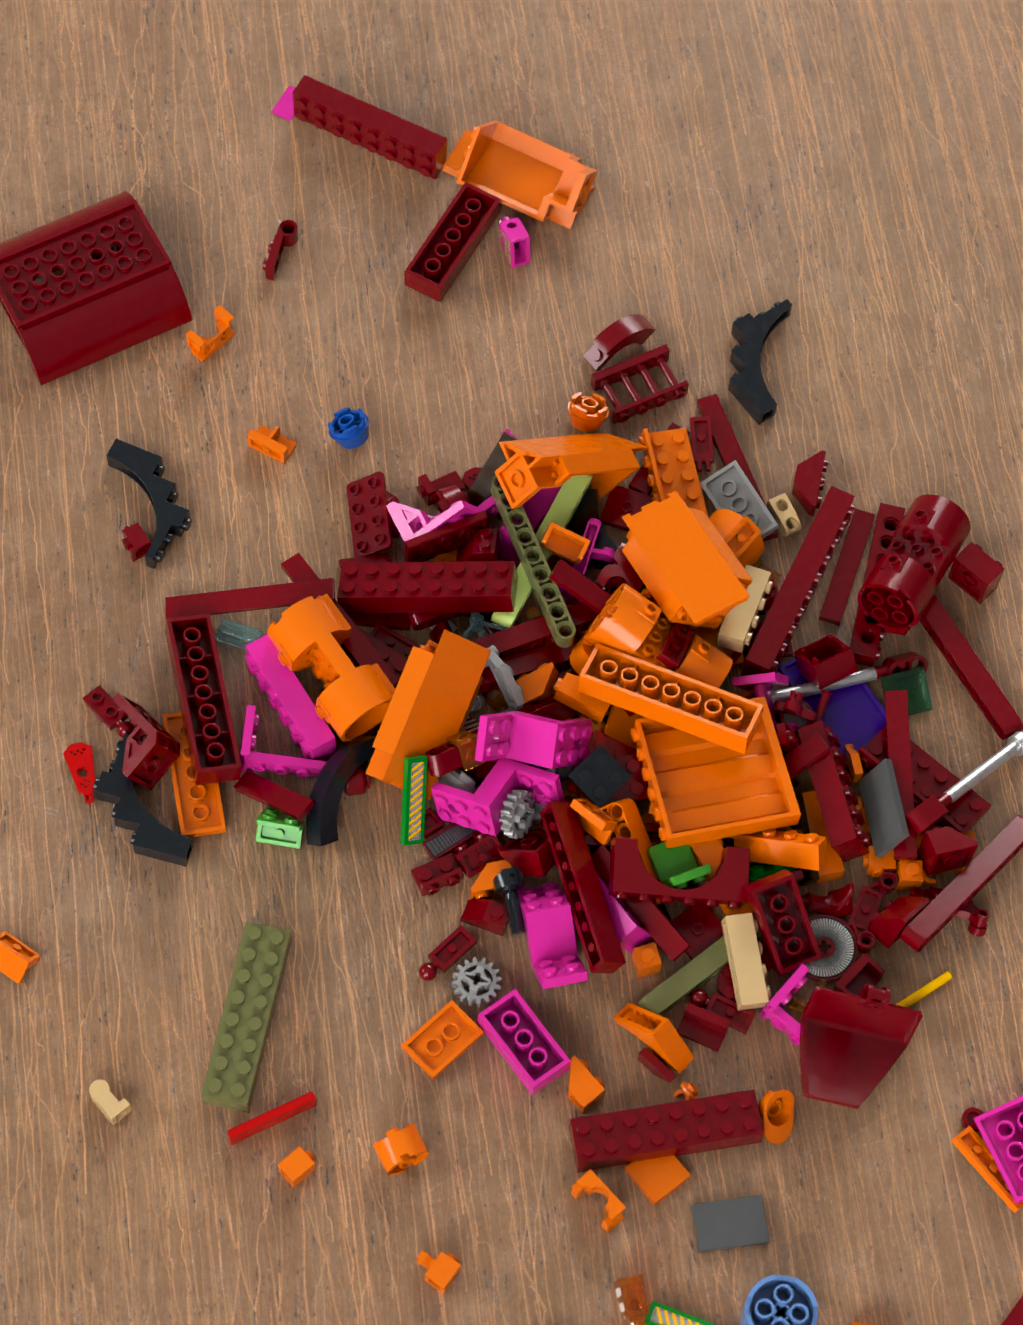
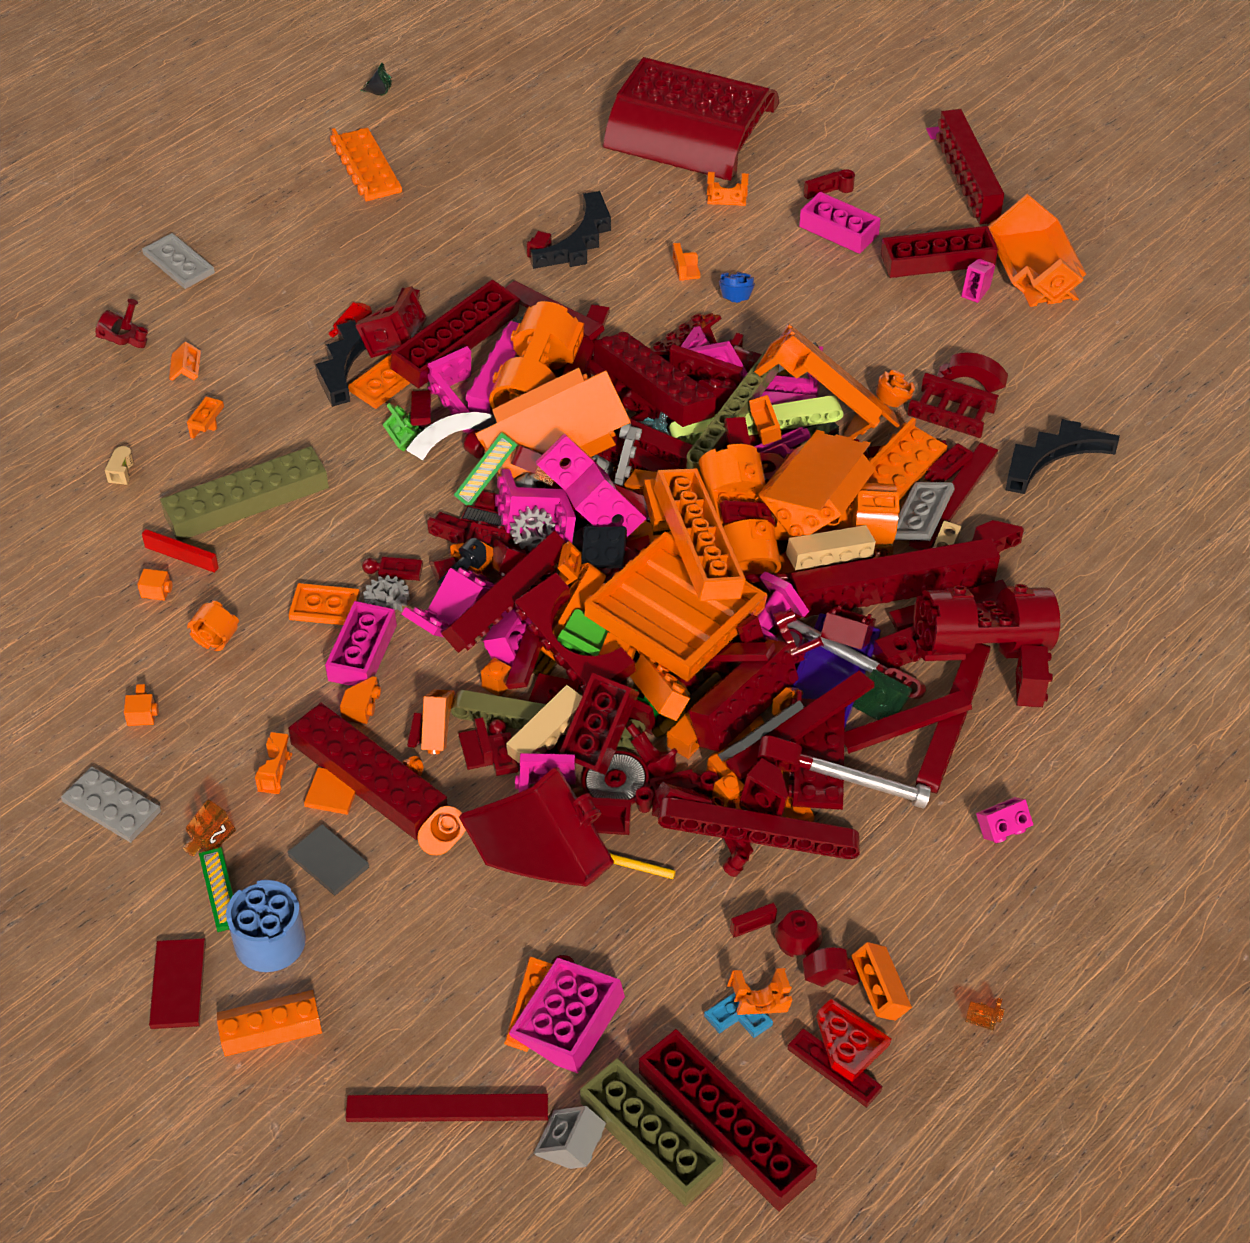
camera: 55 degrees right, 15 degrees down
(115, 985) = (205, 416): none -> orange panel
(343, 284) = (839, 222): none -> dark pink brick
(945, 693) = (906, 721): none -> dark red tile

